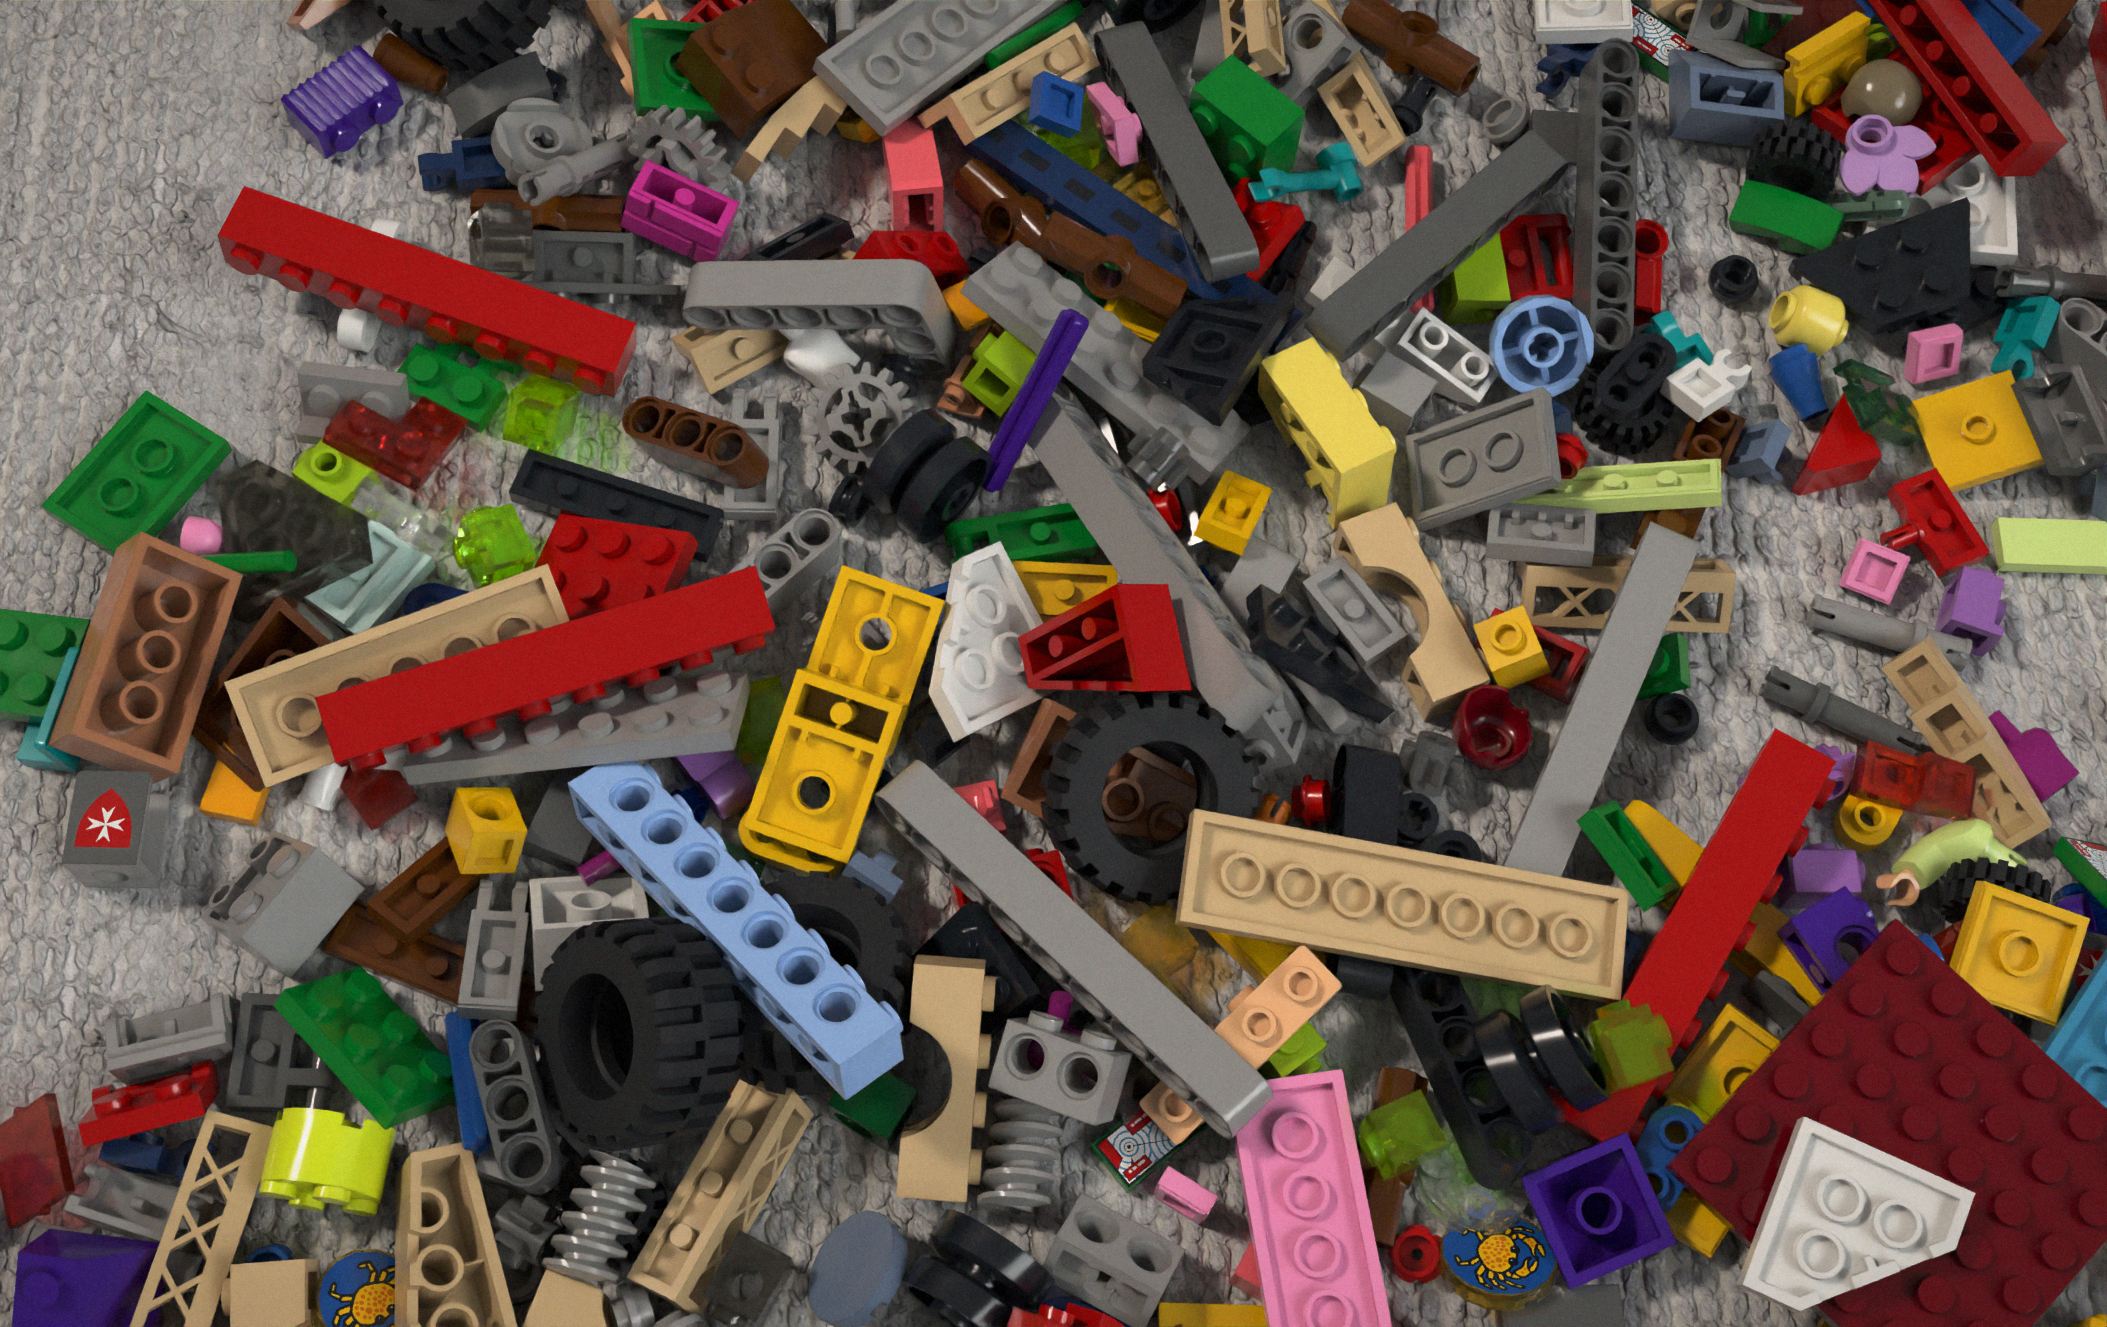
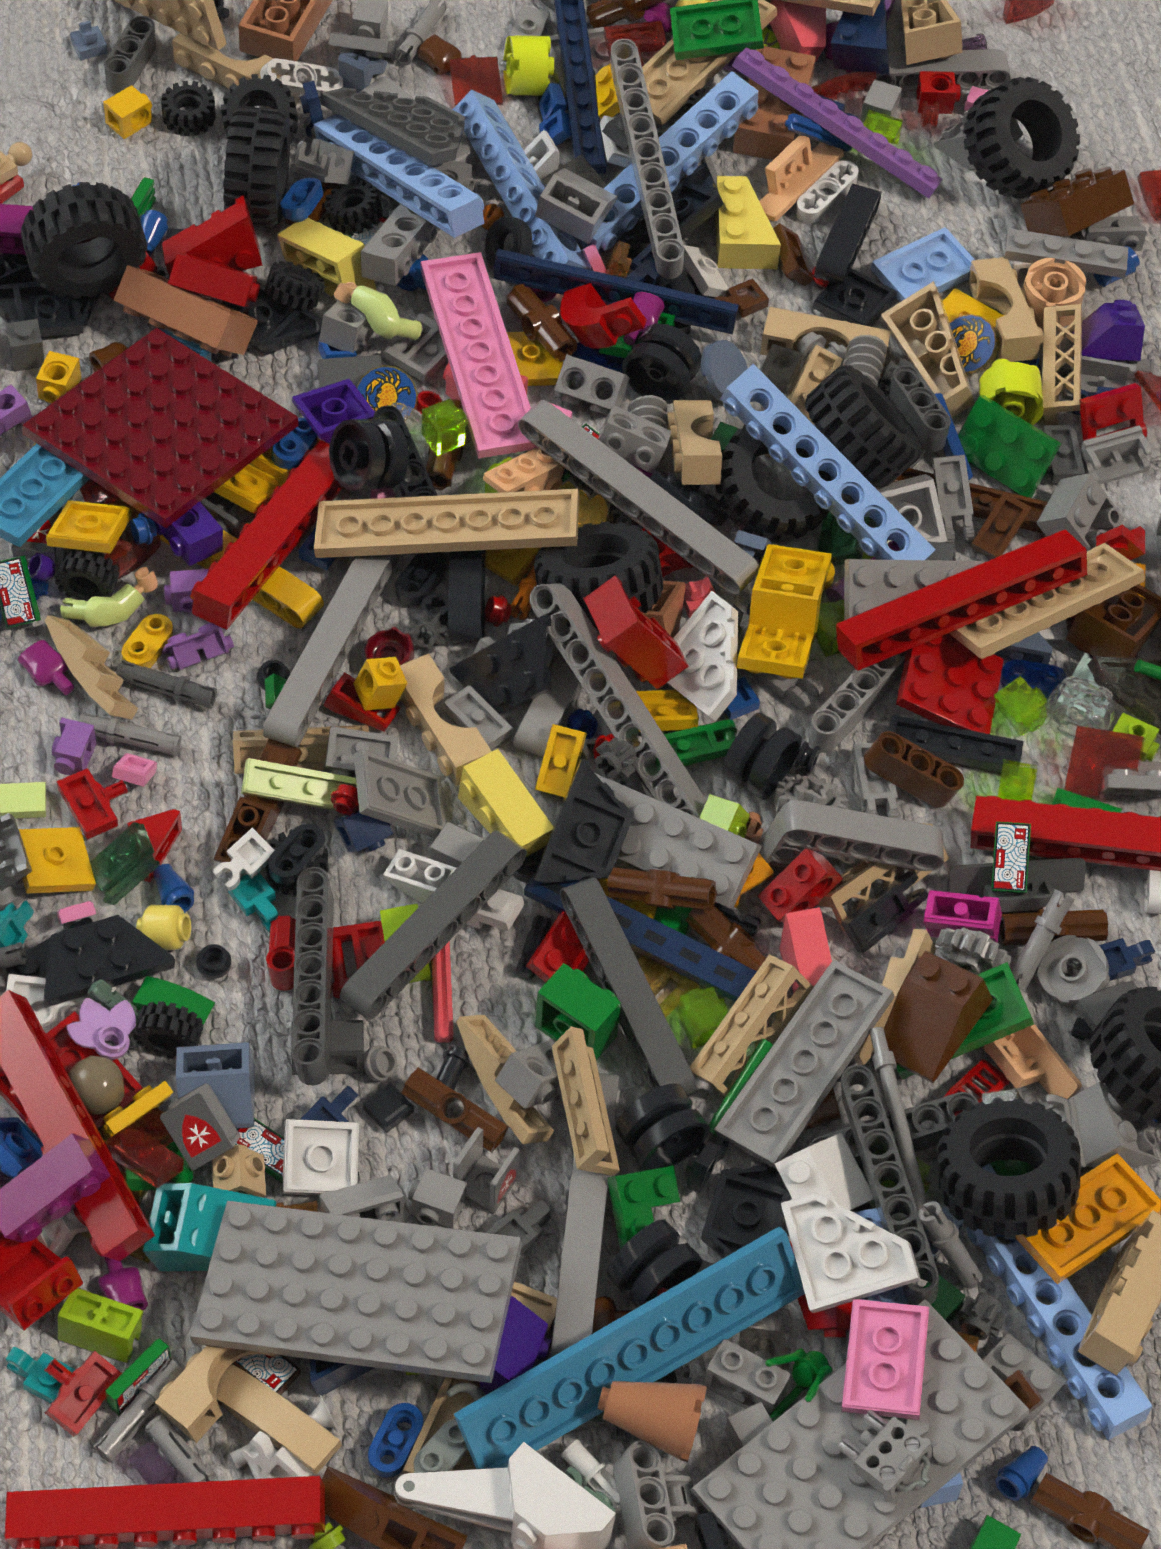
camera: 175 degrees right, 10 degrees down
(220, 834) = (1125, 541): none -> red bracket
(485, 830) = (976, 537): yellow brick -> none
(502, 240) = (1075, 874): clear smoke brick -> none
(587, 274) = (1011, 857): none -> tile
(1034, 395) = (699, 792): dark purple axle -> none
(1056, 104) = (716, 1000): blue plate -> none
(1115, 124) = (673, 1009): bright pink plate -> none
(1335, 172) = (503, 1009): teal brick -> none
(1497, 75) = (388, 1107): none -> black tile
(1541, 344) = (361, 881): light blue cylinder -> none
(1629, 855) = (332, 572): green tile -> none
(1630, 1044) = (318, 465): clear neon green brick -> none
(1759, 451) = (205, 836): sand blue tile -> none
(1846, 1219) = (206, 385): white plate -> none
(1914, 784) = (123, 635): clear red slope -> none

